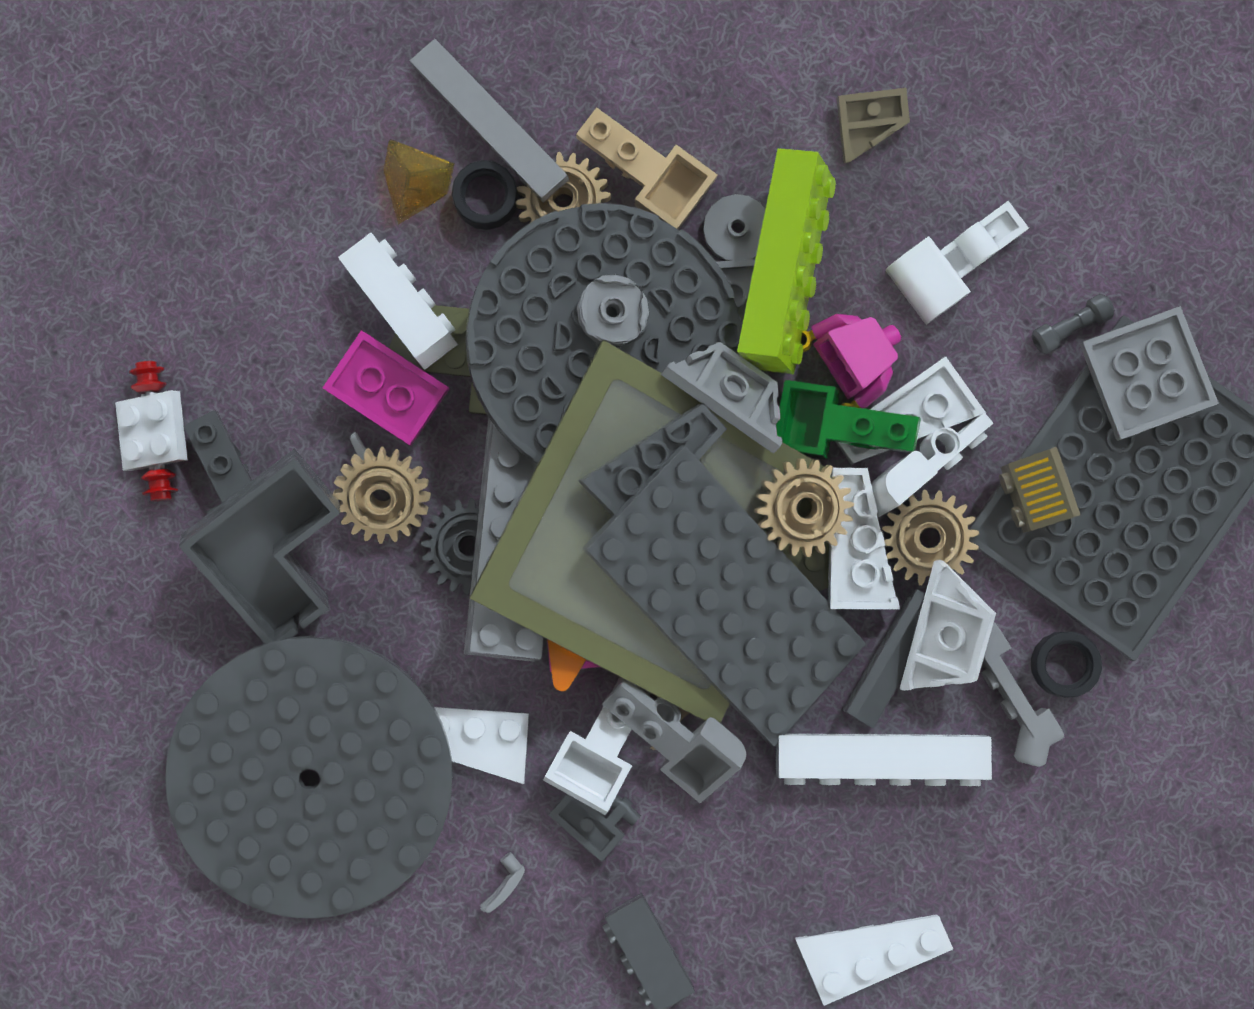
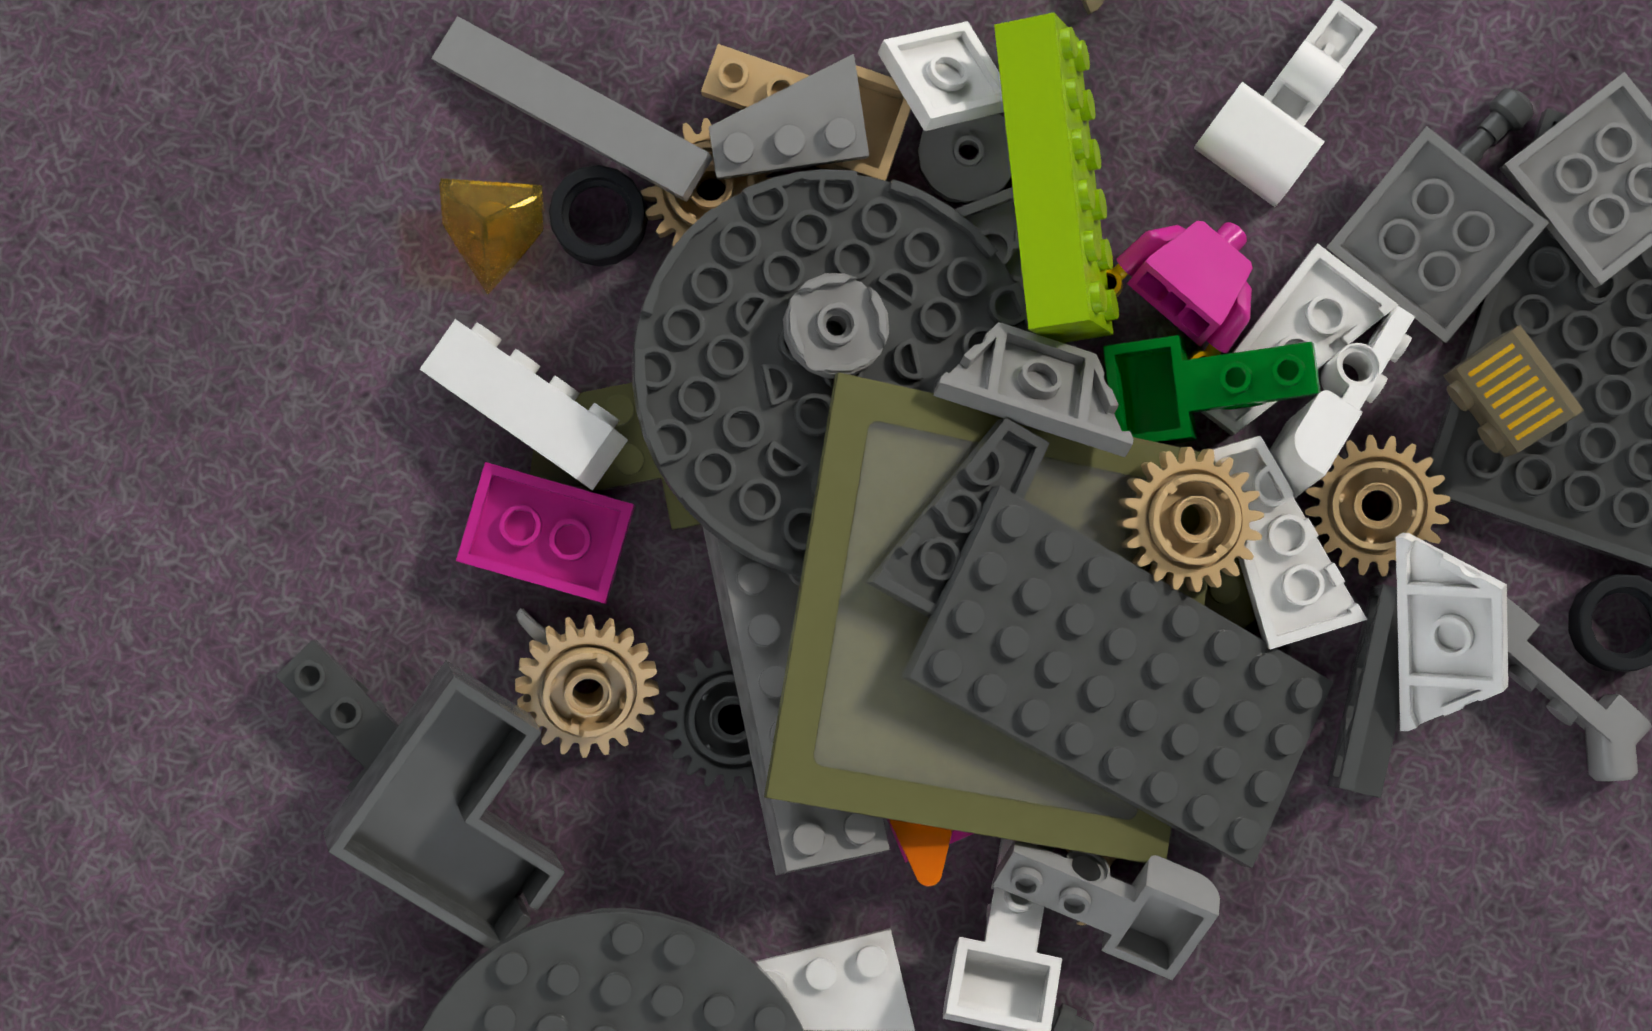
camera: 15 degrees left, 0 degrees up
(151, 430) = (232, 696): white plate -> none
(628, 176) = (795, 128): none -> light grey wing
(736, 172) = (944, 75): none -> white plate
(883, 757) = (1408, 834): white brick -> none
(1024, 374) = (1437, 234): none -> light grey plate

